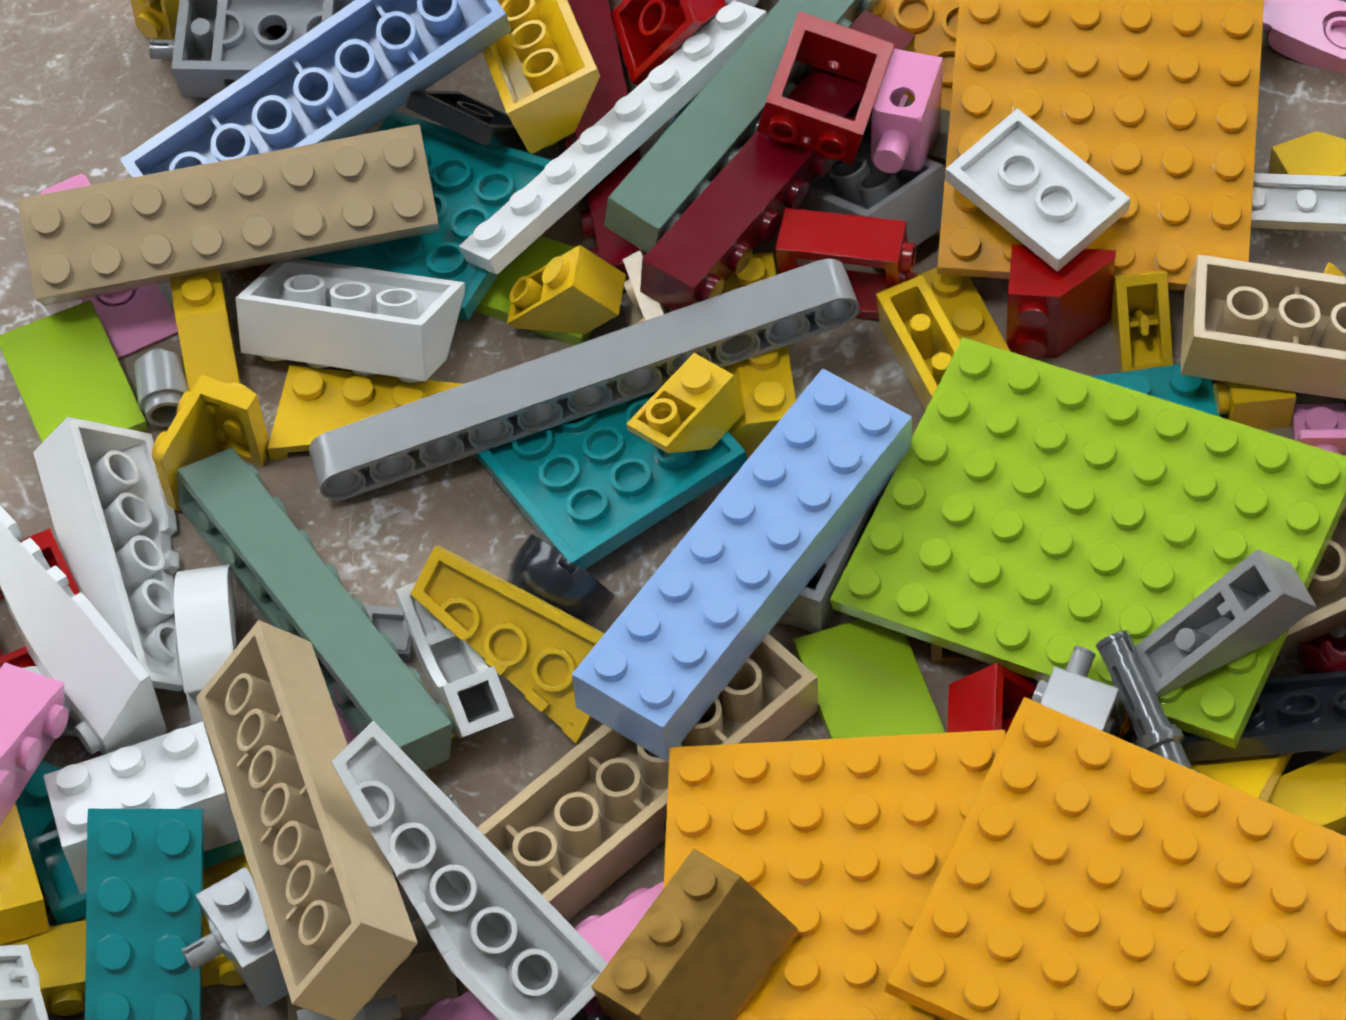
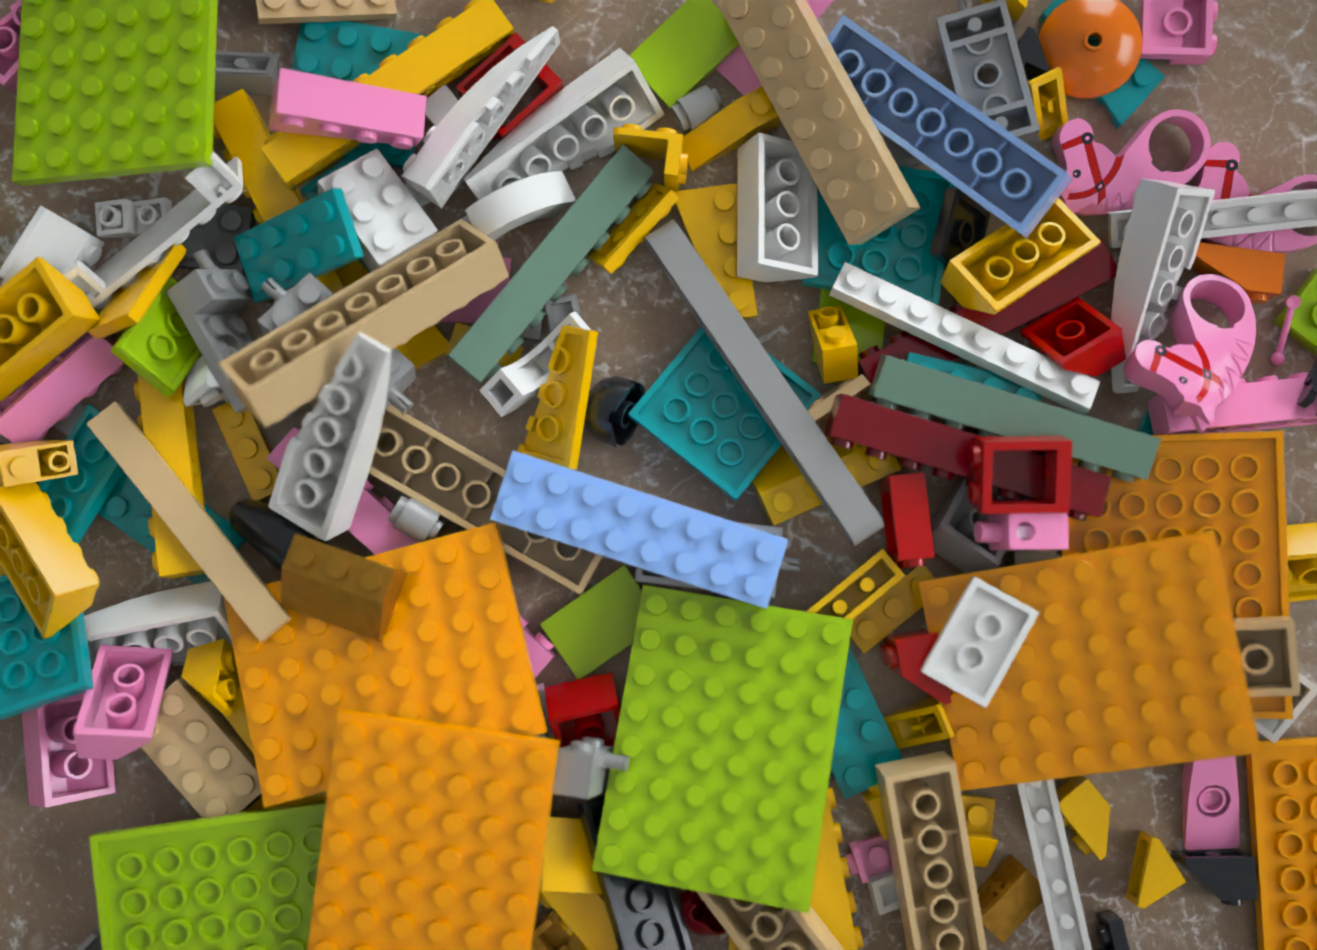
camera: 65 degrees right, 30 degrees up
(306, 504) = (637, 224): none -> yellow plate
(626, 870) = (415, 519): none -> light grey brick
(690, 408) = (743, 455): yellow slope -> none
(1140, 699) = (577, 823): dark grey pin -> none
(1226, 622) = (656, 855): light grey slope -> none

